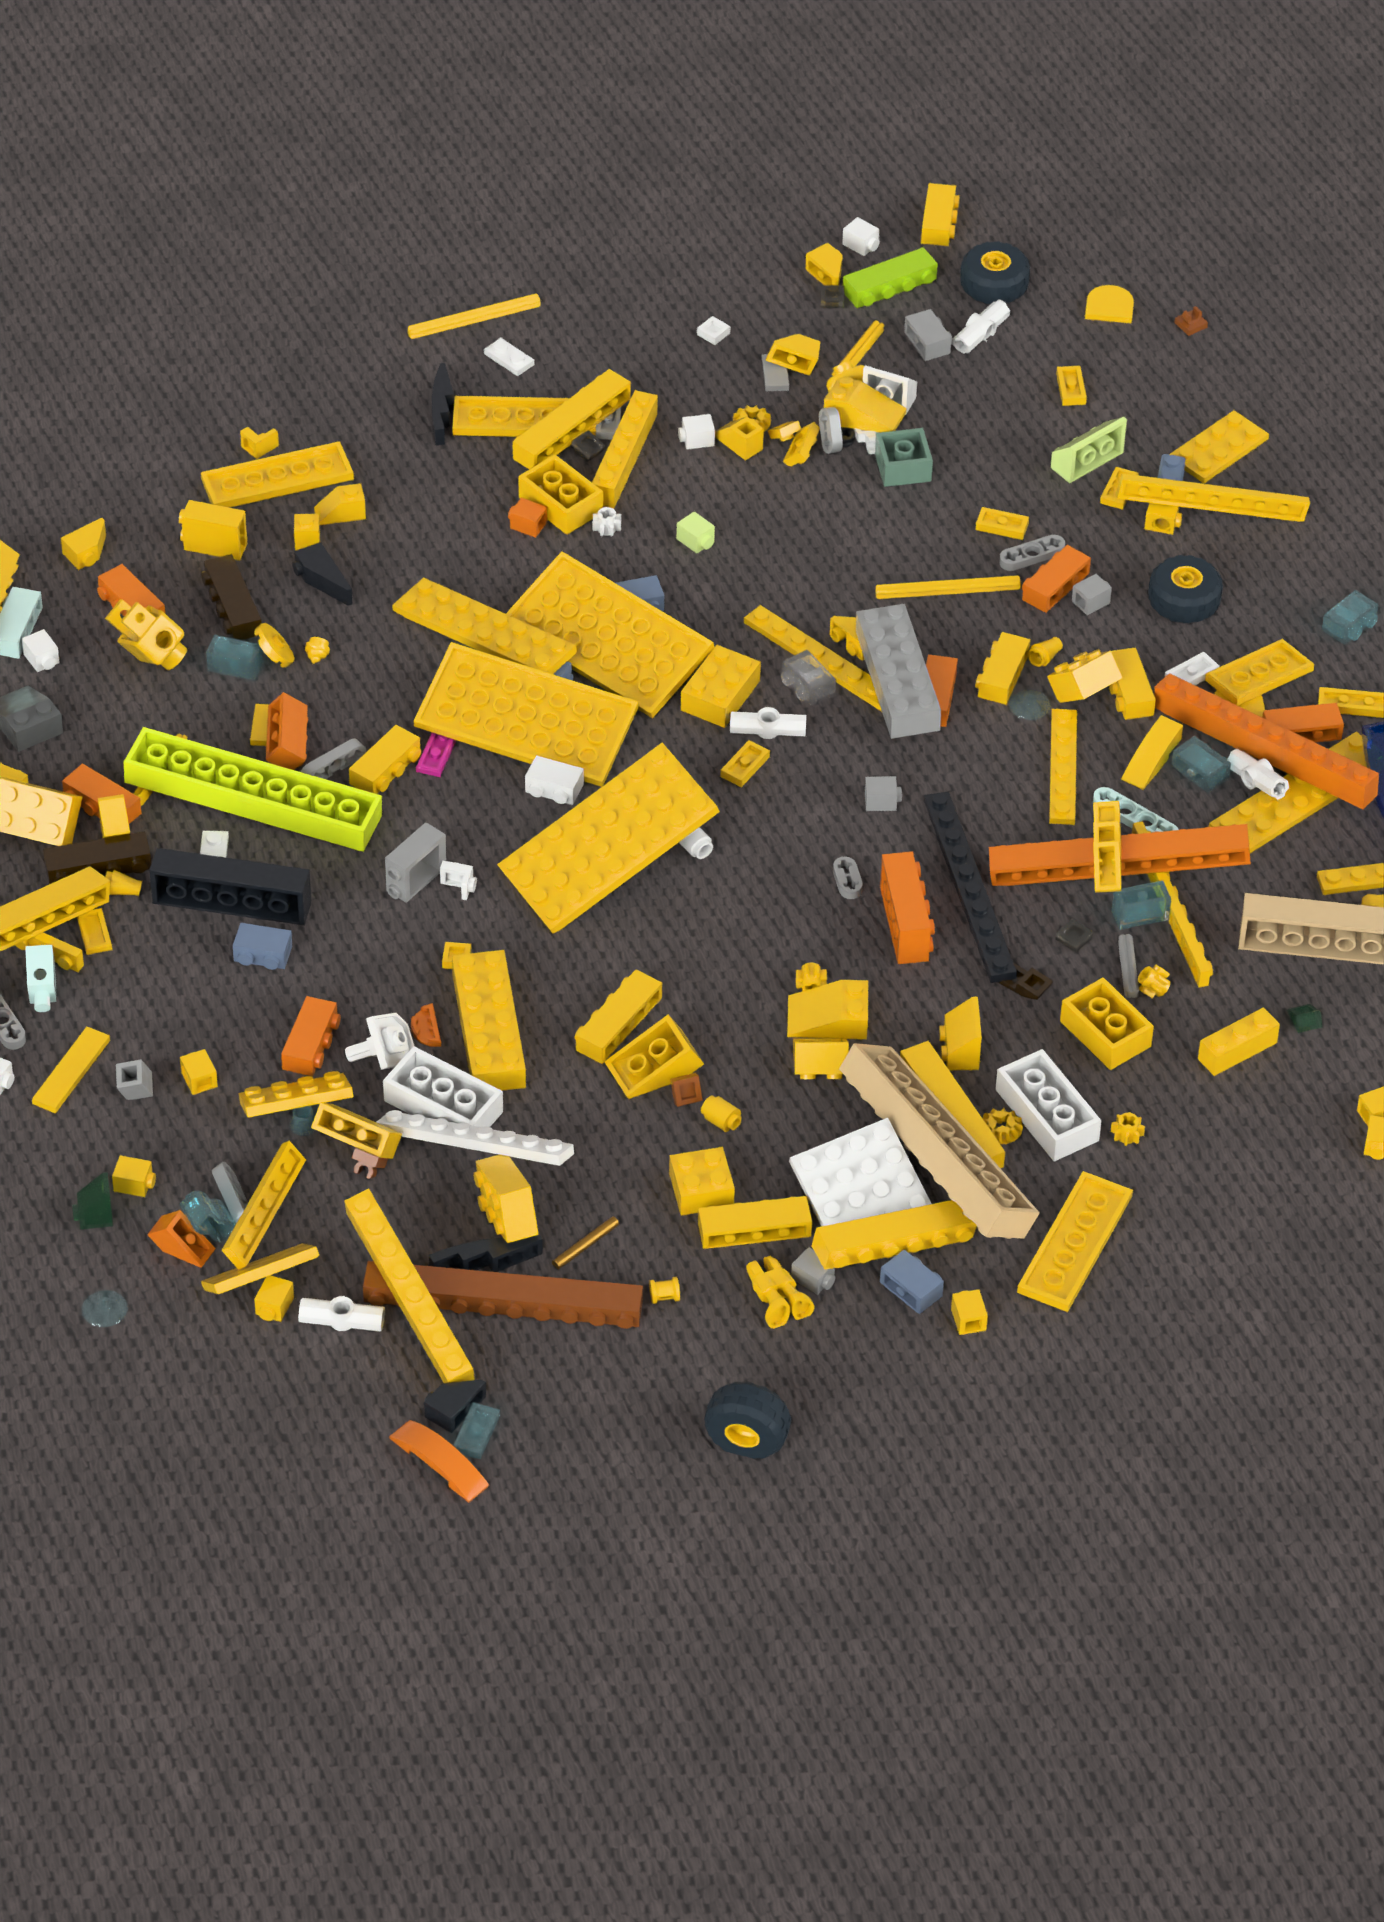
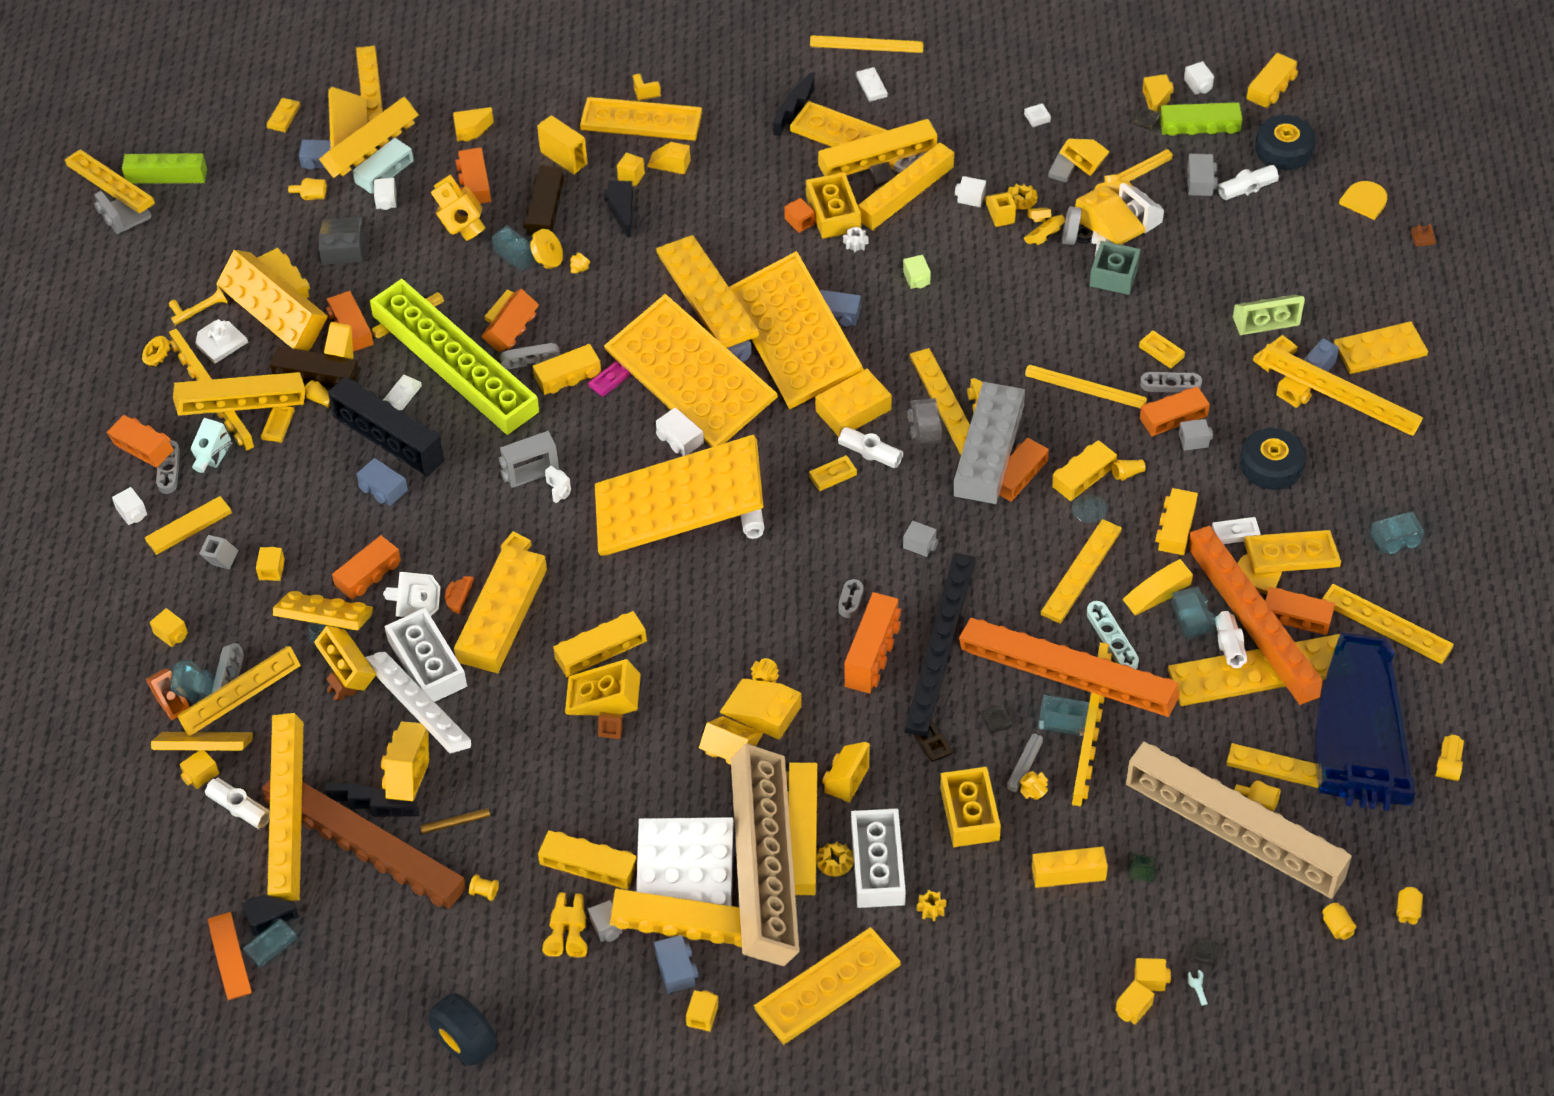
camera: 30 degrees right, 5 degrees up
(94, 1204) = (125, 640): clear green slope -> none
(104, 1308) = (84, 724): clear light blue piece -> none
(701, 1180) = (570, 807): yellow brick -> none
(721, 1113) = (624, 756): yellow brick -> none
(1071, 385) = (1290, 255): yellow plate -> none
(1084, 676) = (1139, 502): yellow brick -> none
(1107, 846) = (1055, 656): yellow slope -> none

